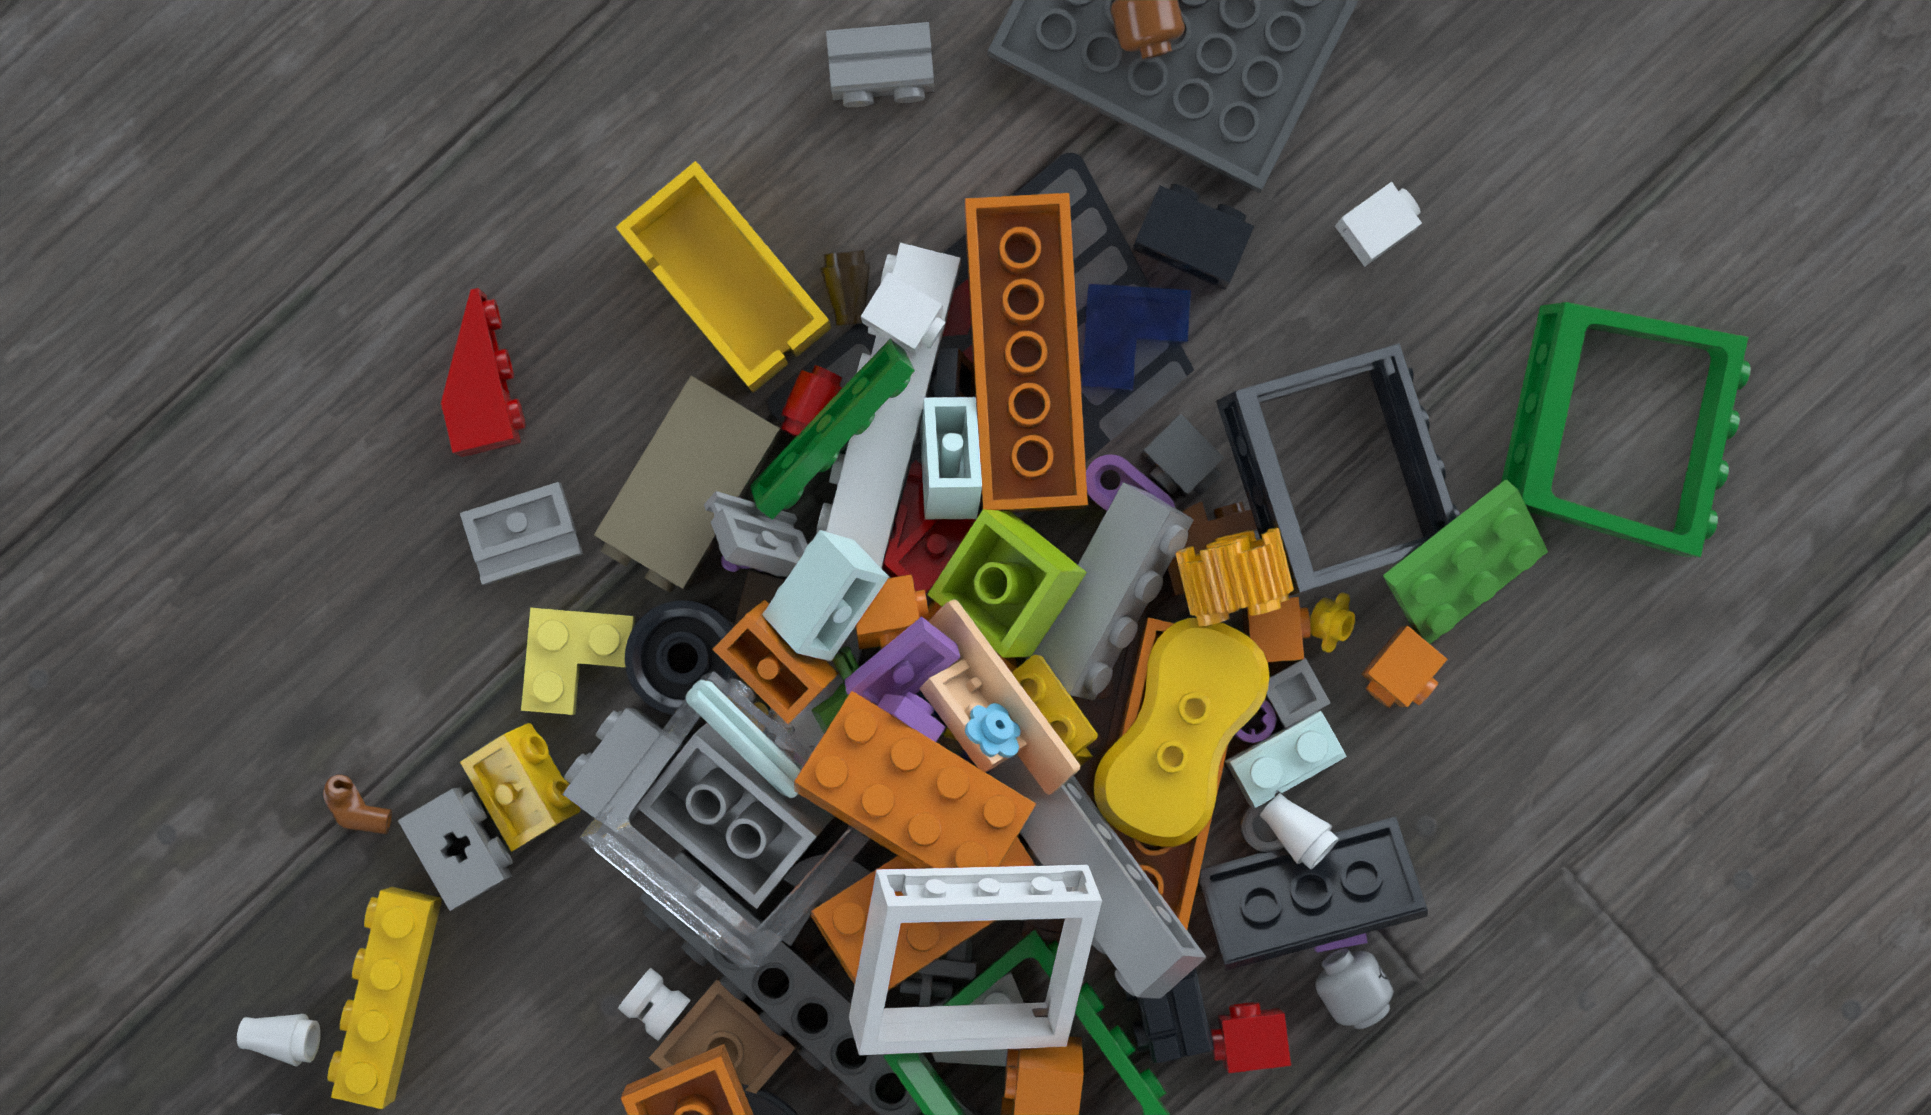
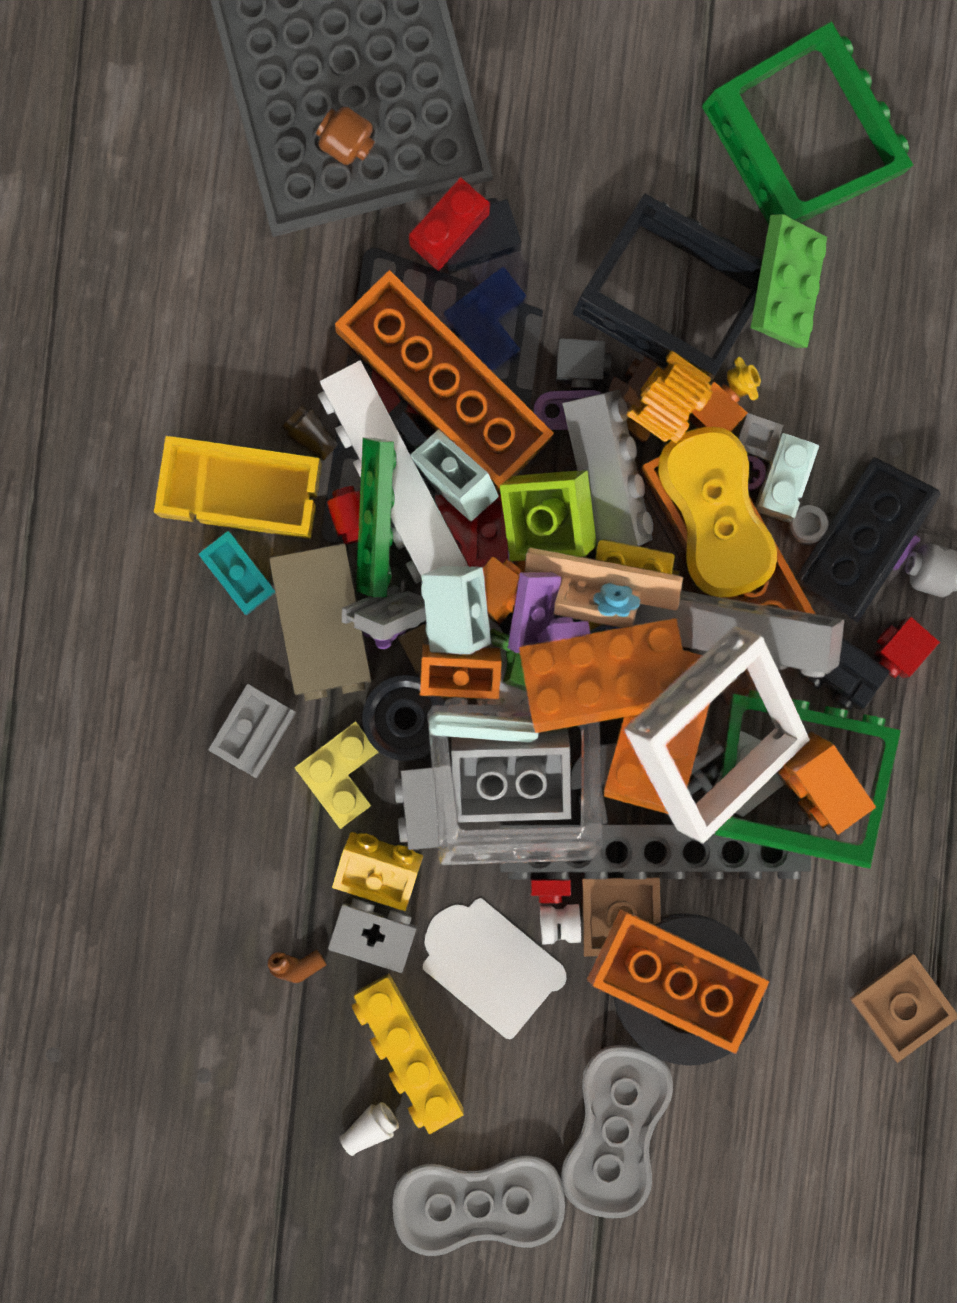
camera: 45 degrees left, 0 degrees up
(476, 390) = (158, 677): red slope -> none
(549, 982) = (490, 965): none -> white sticker
(648, 361) = (237, 573): none -> teal plate
(673, 960) = (550, 889): none -> red plate
(880, 63) = (218, 292): light grey brick -> none
(904, 314) = (358, 417): white brick -> none
(1170, 200) = (449, 224): none -> red brick
(1301, 833) = (829, 510): white cone -> none
(1379, 223) = (573, 137): white brick -> none
(1404, 670) = (806, 371): orange brick -> none

